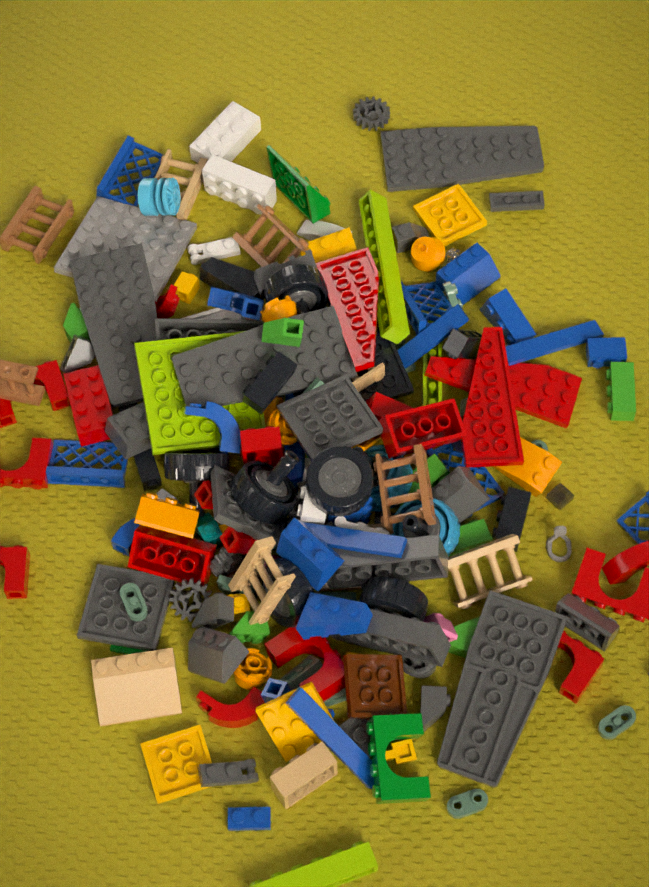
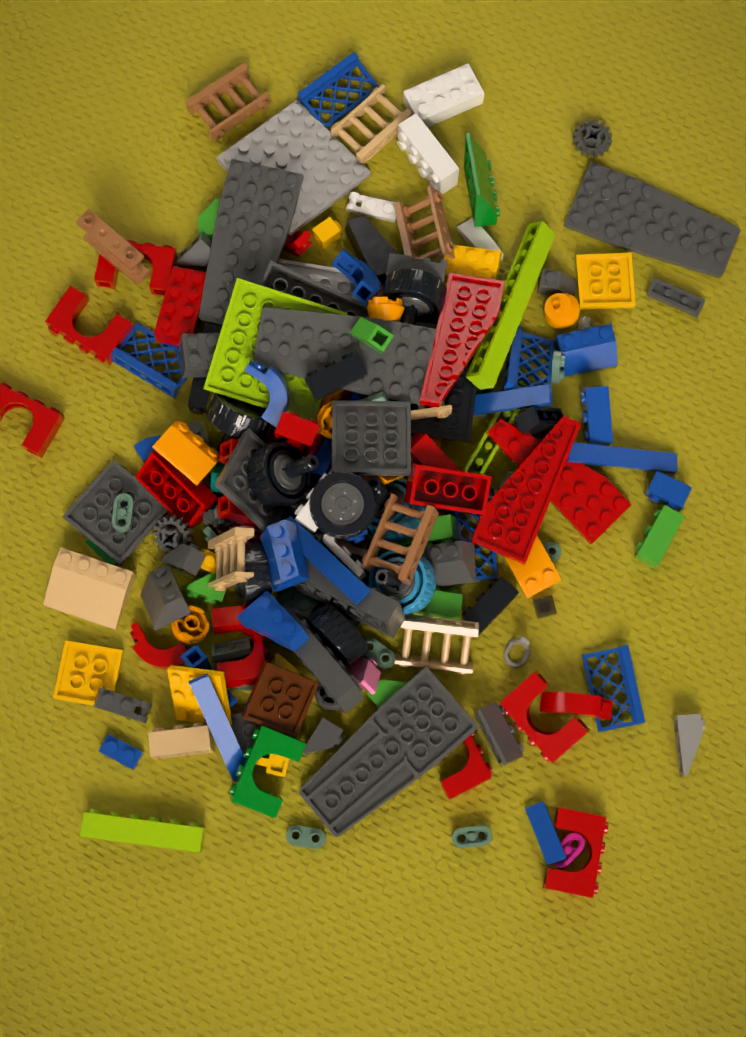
camera: 25 degrees right, 15 degrees up
(159, 196) = (345, 132): medium azure wheel -> none
(437, 606) = (378, 652): none -> sand green plate

